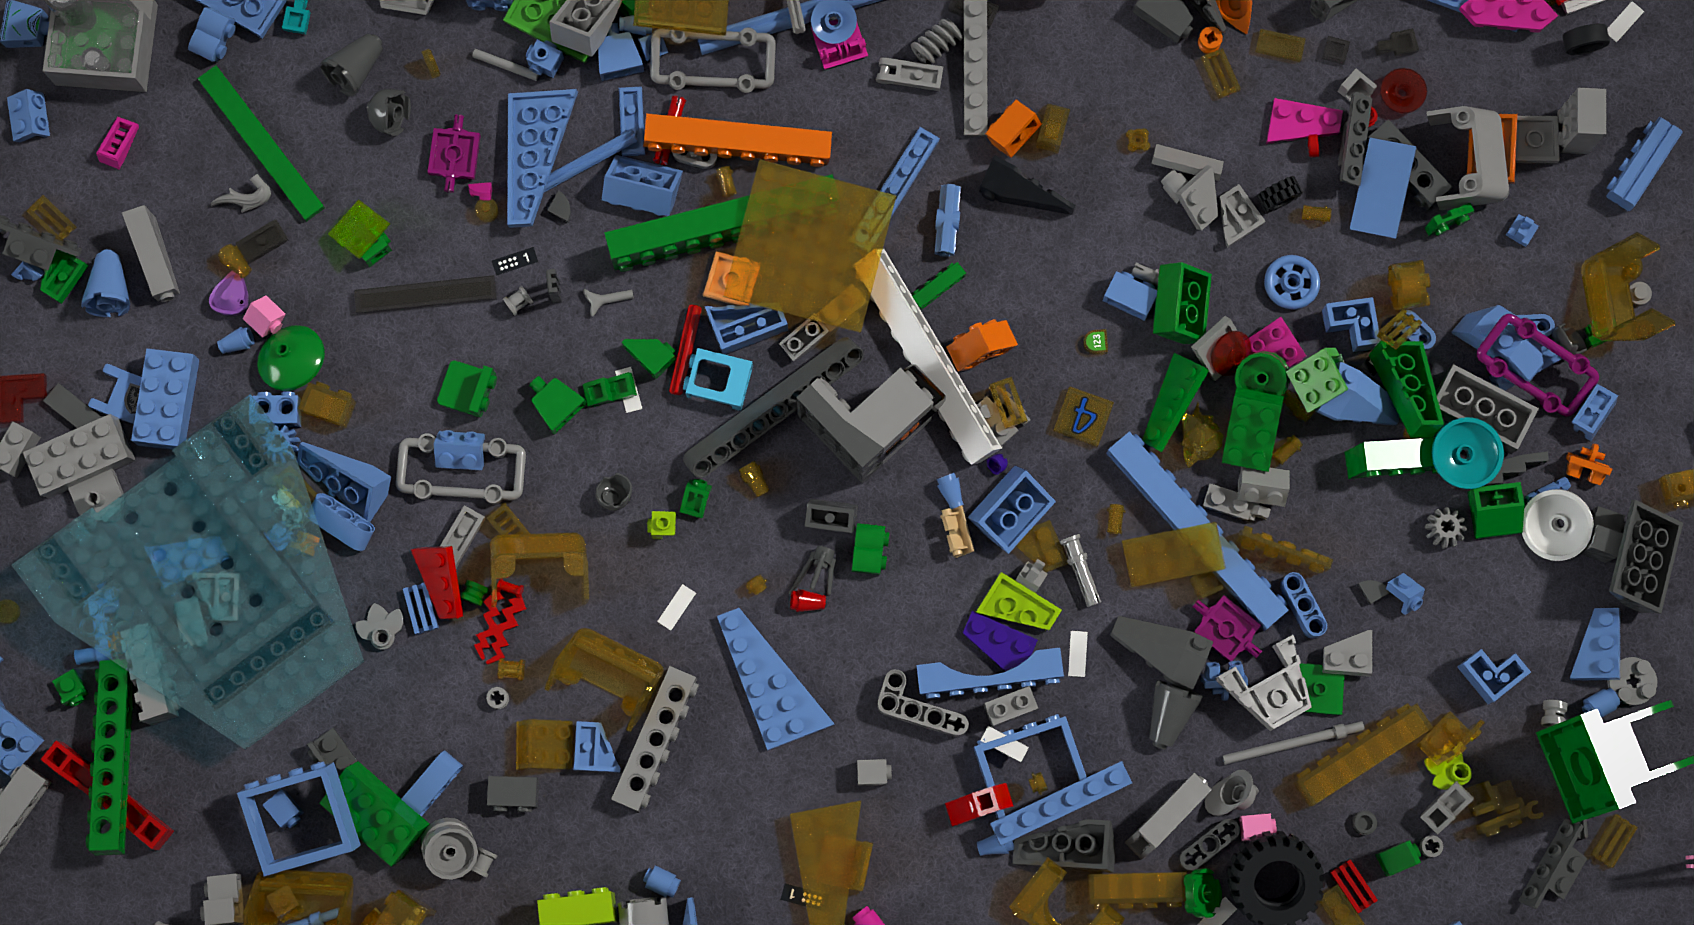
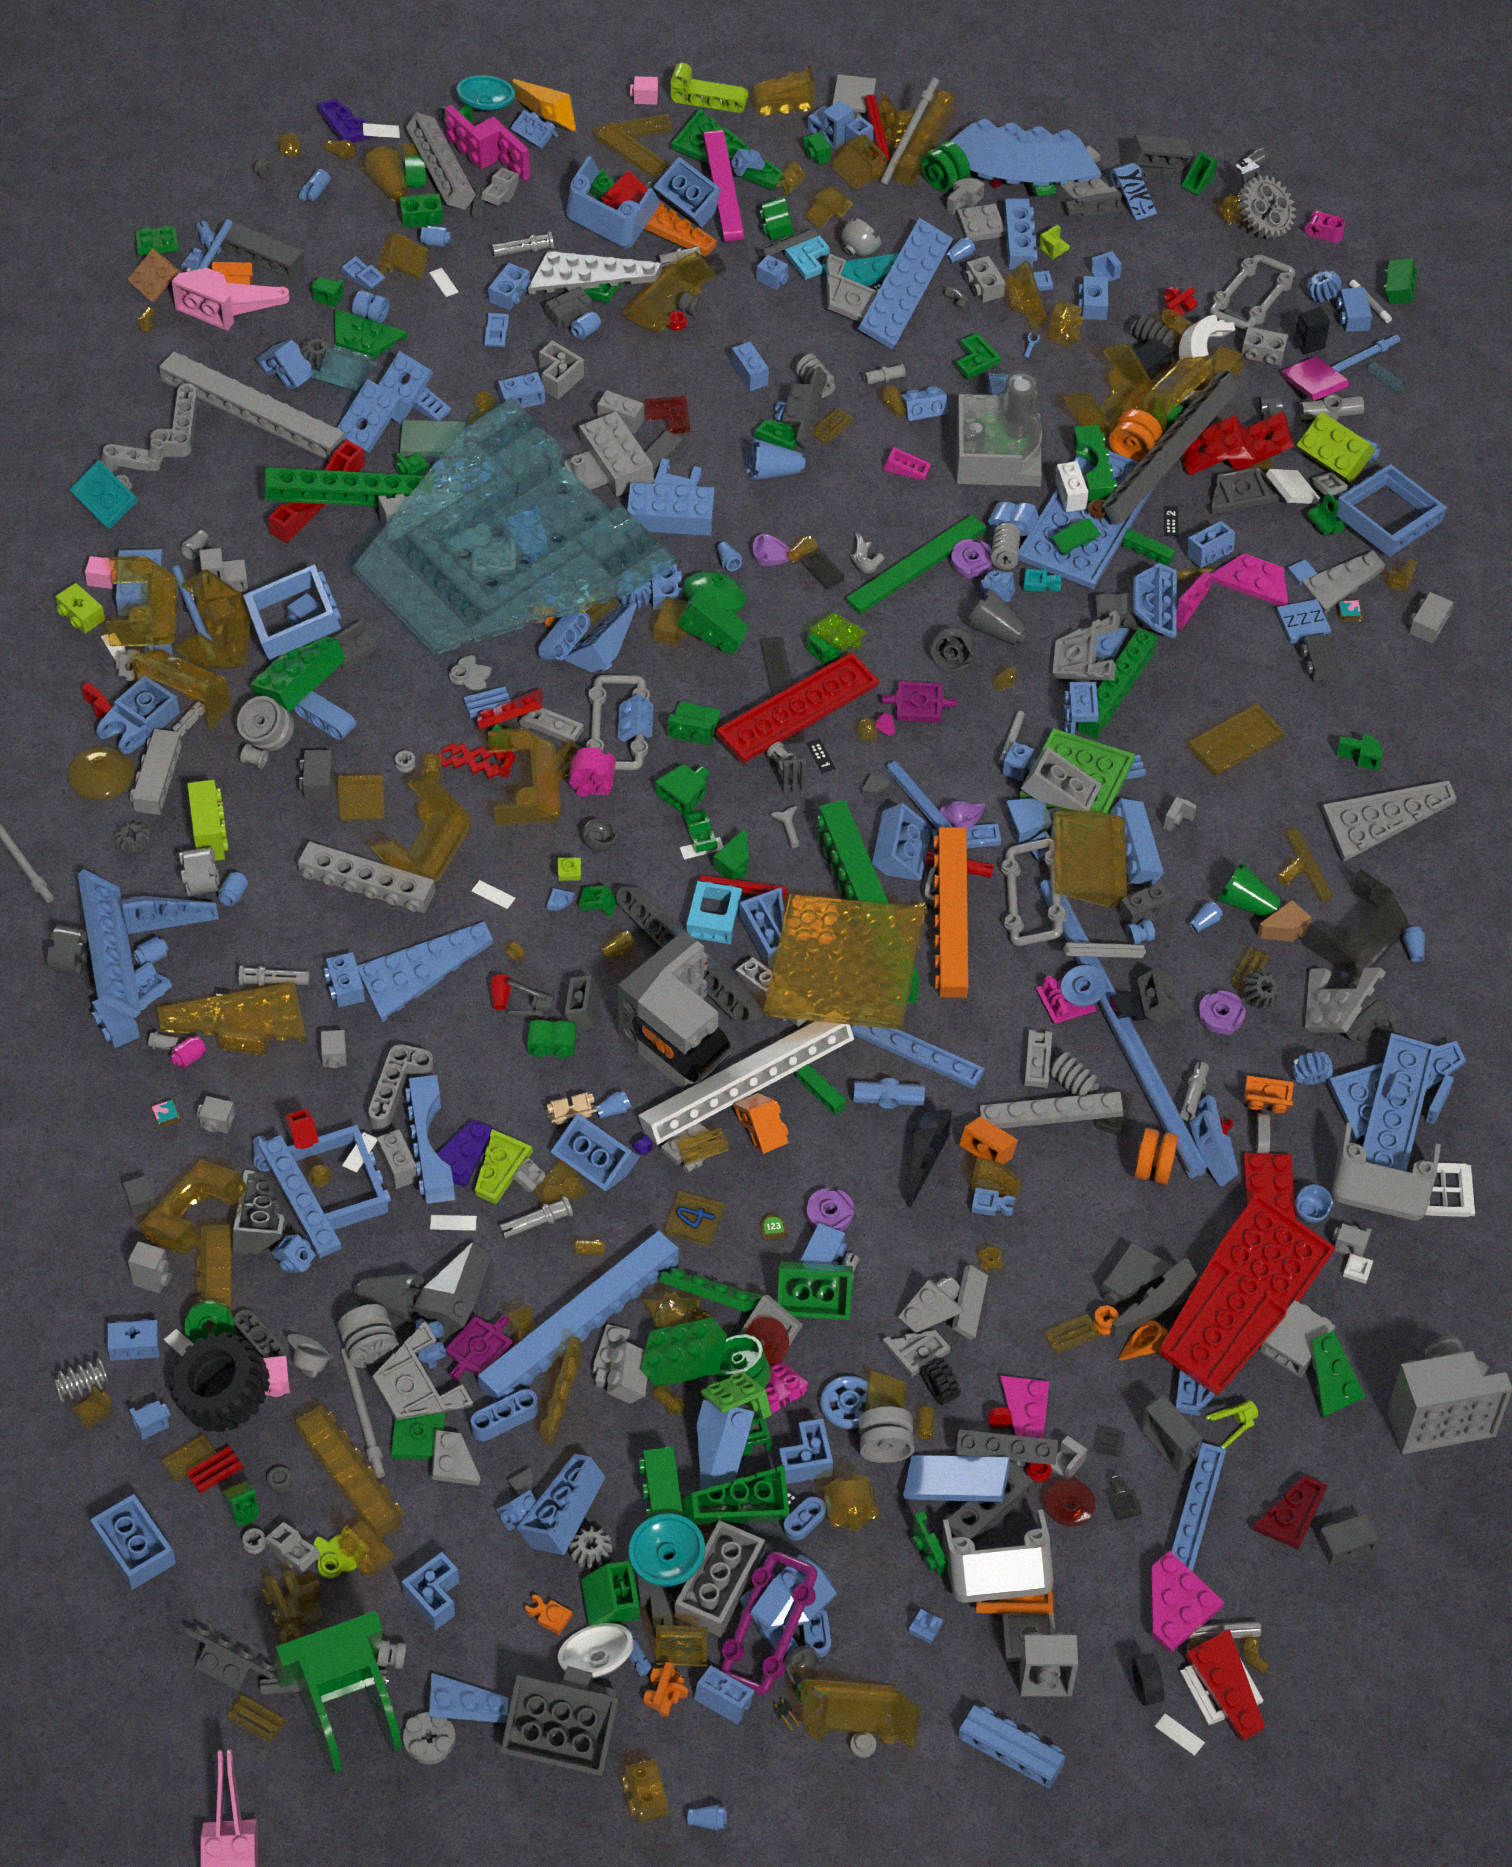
camera: 85 degrees right, 25 degrees down
(22, 148) = (892, 398): none -> clear yellow cone
(30, 664) = (428, 437): none -> sand green tile
(151, 253) = (805, 489): light grey slope -> none
(253, 46) = (1005, 546): none -> light grey piece
(264, 316) = (751, 571): bright pink brick -> none
(271, 88) = (968, 567): none -> medium lavender plate
(306, 58) = (1001, 583): none -> medium blue brick
(342, 361) = (711, 622): none -> green wedge
(458, 278) = (797, 707): none -> red plate
(534, 138) = (945, 759): medium blue wing -> none
(535, 496) = (592, 772): none -> dark pink brick
(592, 749) = (358, 832): medium blue wing -> none
(605, 121) = (962, 814): none -> medium lavender piece
(689, 538) = (559, 898): none -> medium blue tile
(775, 849) = (261, 976): none -> light grey pin
(786, 761) = (345, 980): none -> medium blue brick
(949, 894) = (216, 1115): none -> light grey brick
(1076, 136) = (989, 1202): none -> medium blue plate
(1083, 273) = (835, 1200): none -> medium lavender plate
(1122, 810) = (294, 1254): none -> medium blue brick
(1168, 816) = (288, 1295): light grey slope -> none
(1174, 554) = (553, 1291): clear yellow plate -> none
(1226, 733) = (368, 1335): none -> light grey wheel
(1280, 45) = (1109, 1389): clear yellow tile -> none
(1288, 247) = (885, 1391): none -> clear yellow piece
(1339, 247) = (886, 1434): none -> light grey wheel
(1406, 321) = (802, 1486): clear yellow tile -> none
(1410, 551) = (562, 1506): none -> medium blue wedge
(1510, 566) = (551, 1616): none -> orange plate
(1554, 446) = (681, 1645): none -> clear yellow tile
(1603, 361) = (783, 1710): none -> piece
(1604, 700) = (403, 1702): medium blue brick -> none

